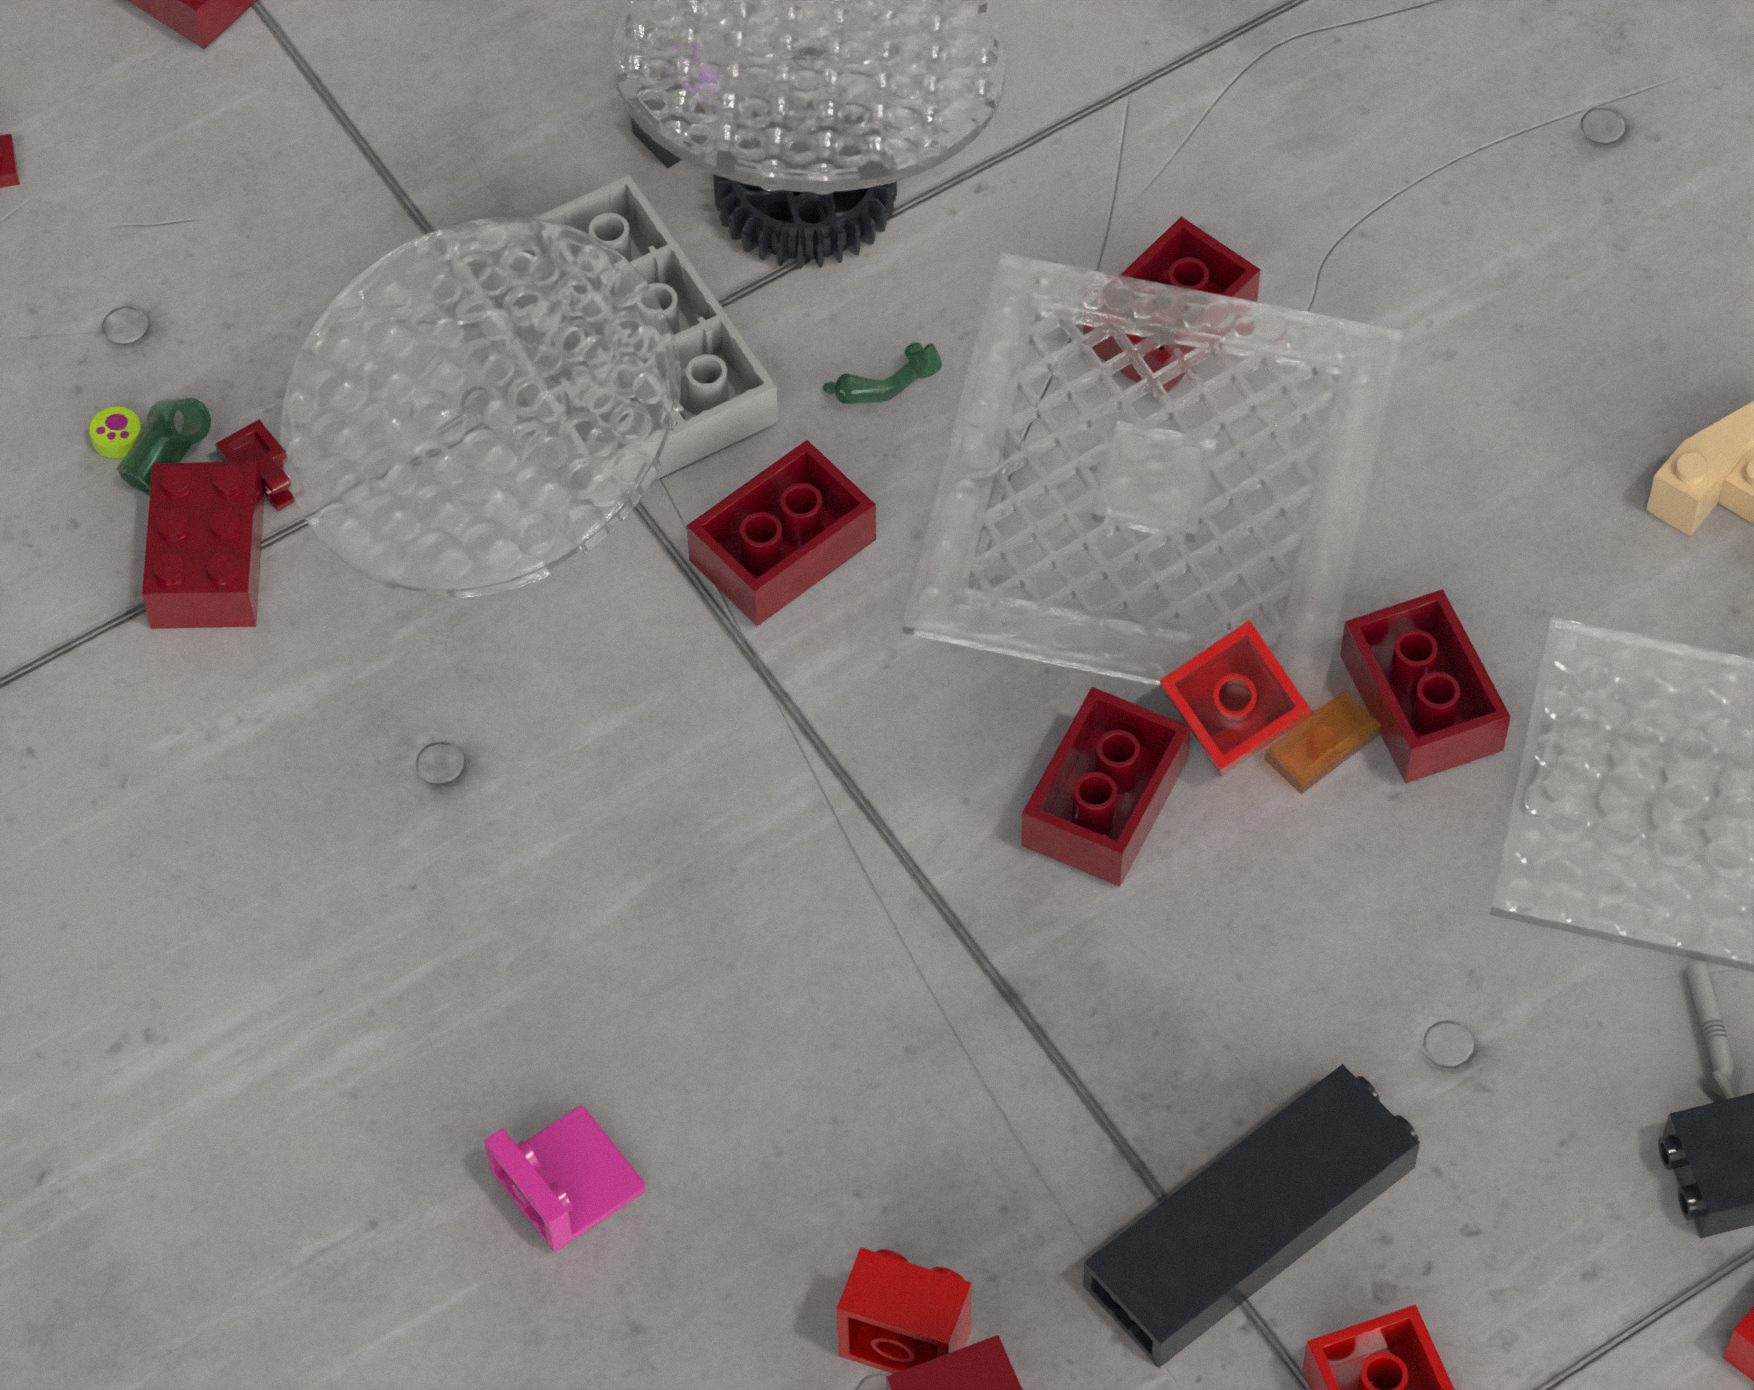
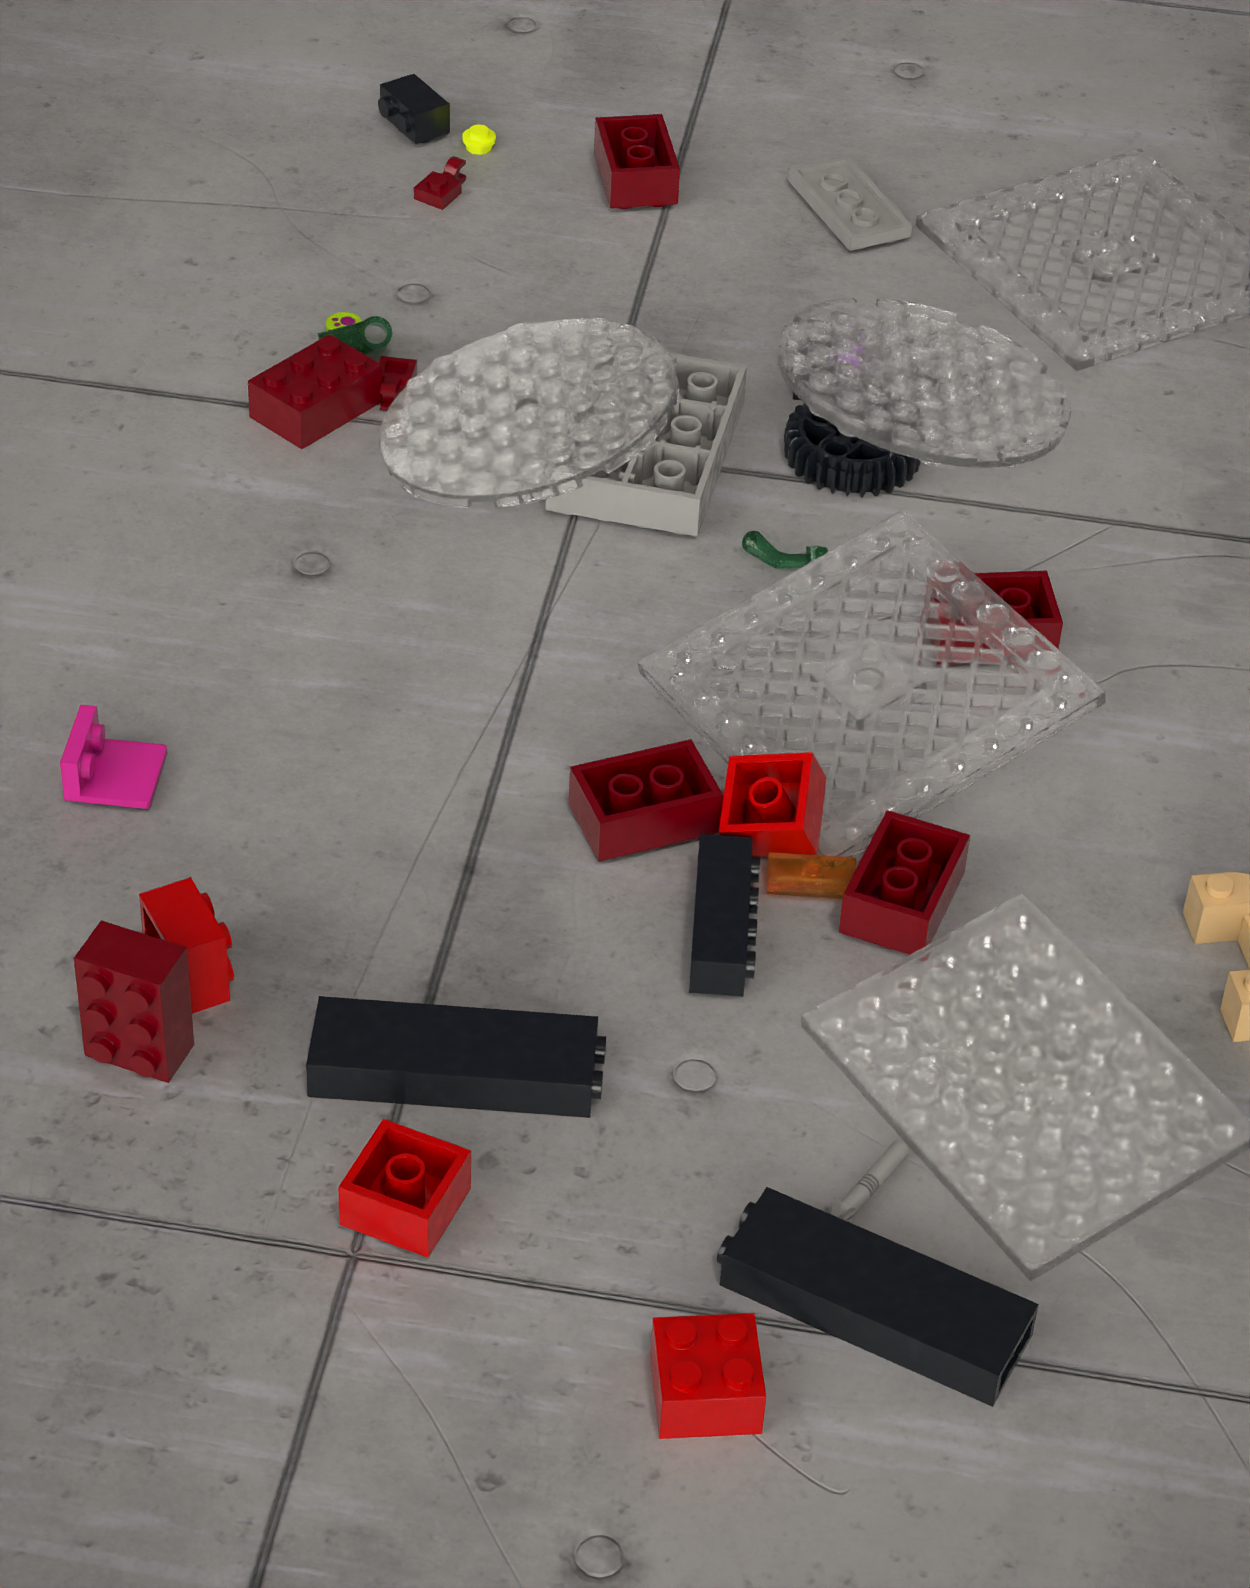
camera: 40 degrees right, 15 degrees down
(781, 532) = (621, 572): dark red brick -> none
(1309, 855) = (722, 915): none -> black brick

